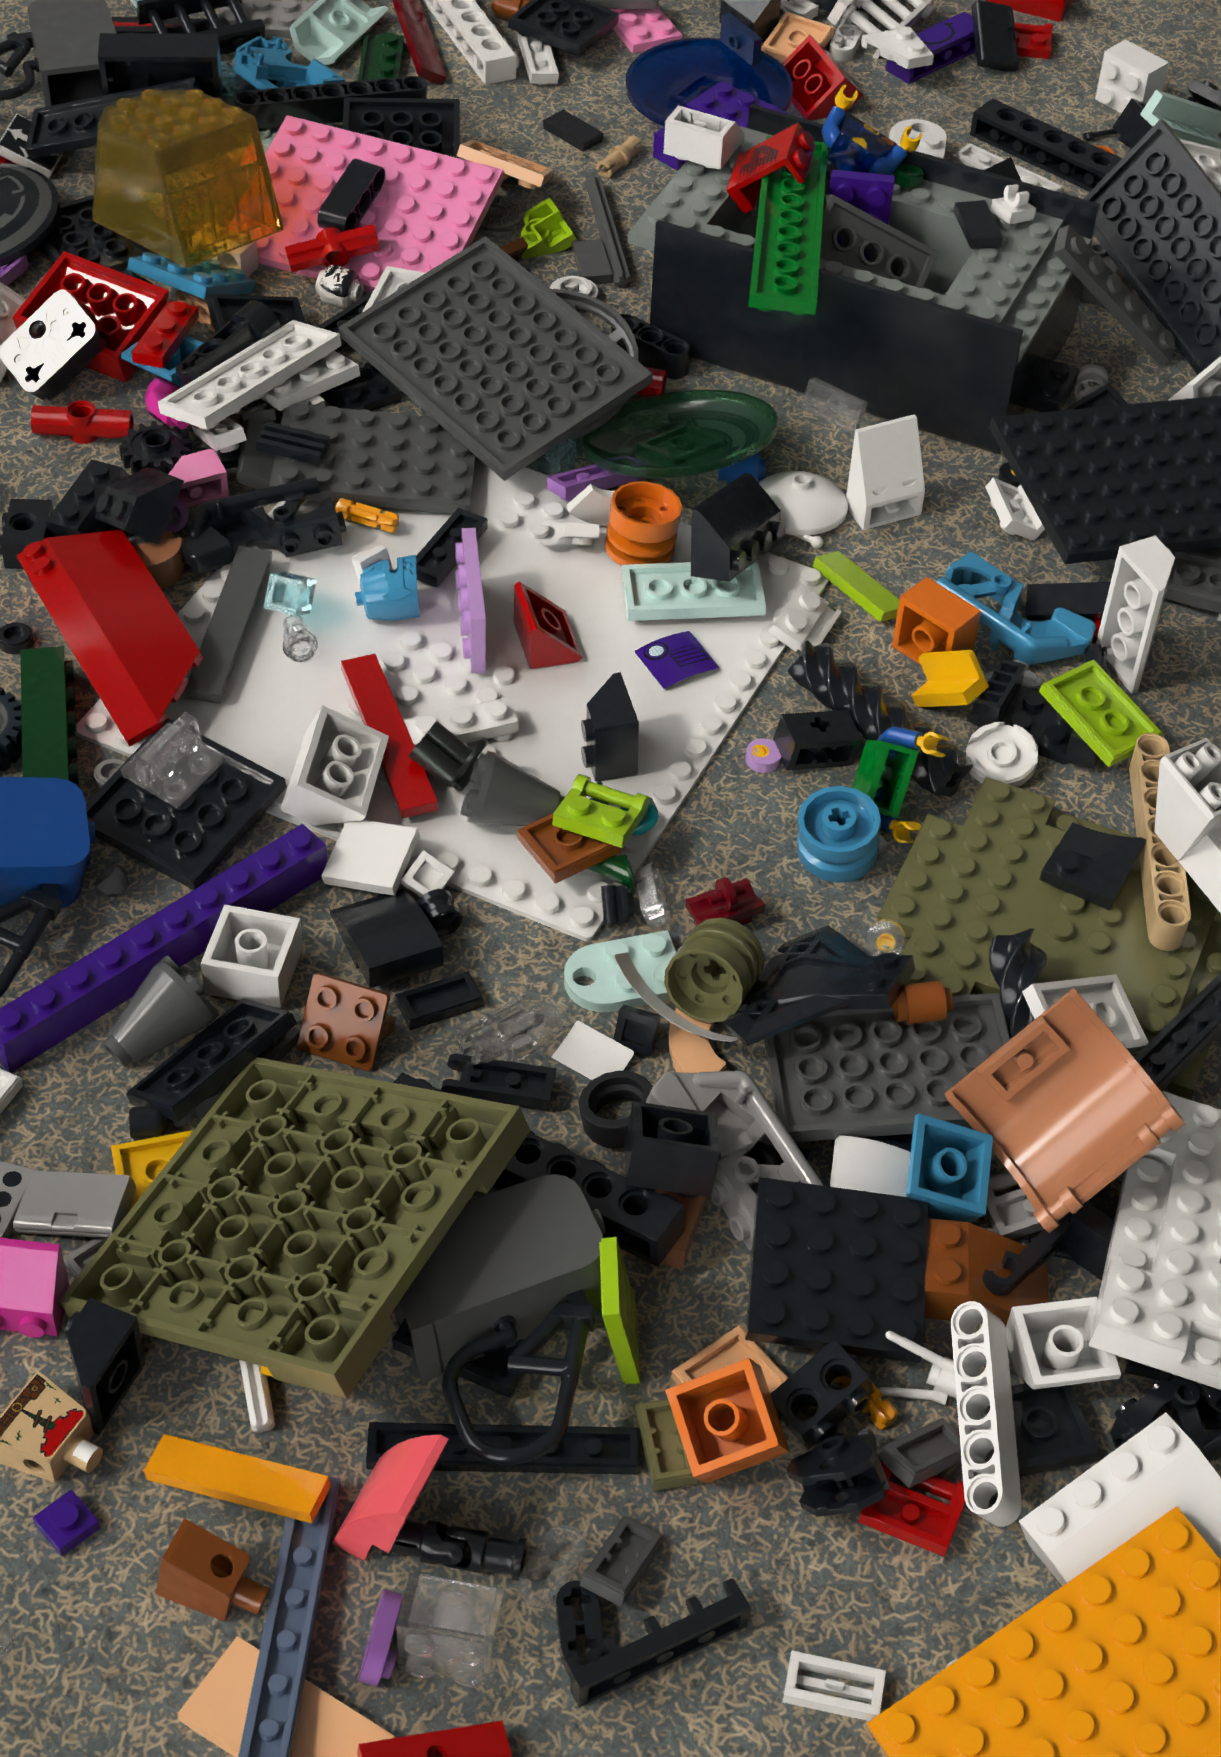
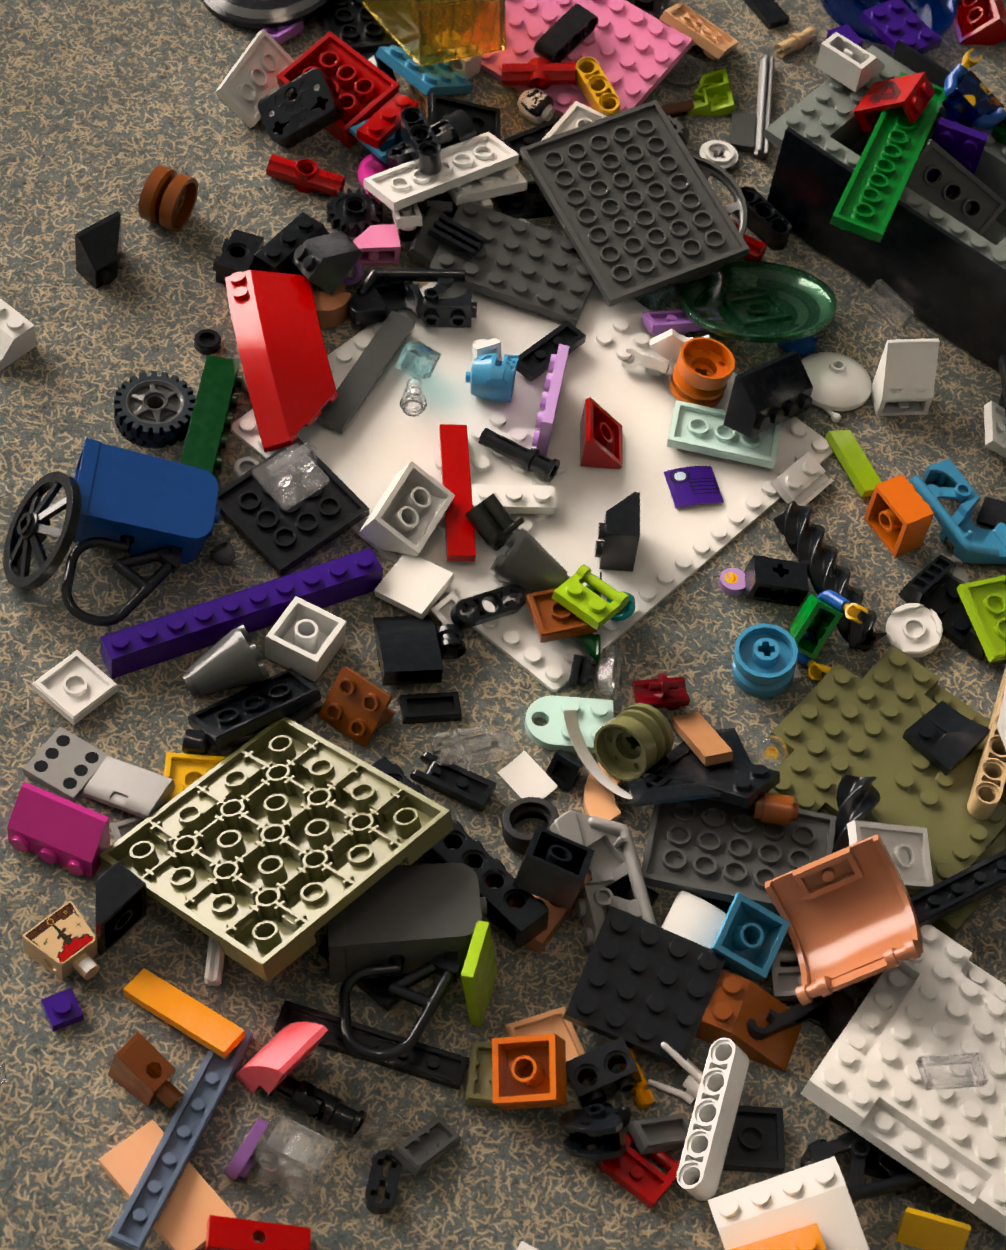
camera: 10 degrees right, 5 degrees up
(216, 342) = (420, 141): none -> black beam
(368, 515) = (496, 308): light orange axle -> none
(405, 244) = (596, 87): none -> yellow beam
(467, 673) = (529, 458): none -> black pin
(468, 870) = (482, 616): none -> black beam
(659, 1647) = (432, 1211): black hinge -> none
(798, 945) = (702, 738): none -> medium nougat tile
(952, 679) = (896, 561): yellow panel -> none
(1052, 1343) = (778, 1084): white slope -> none

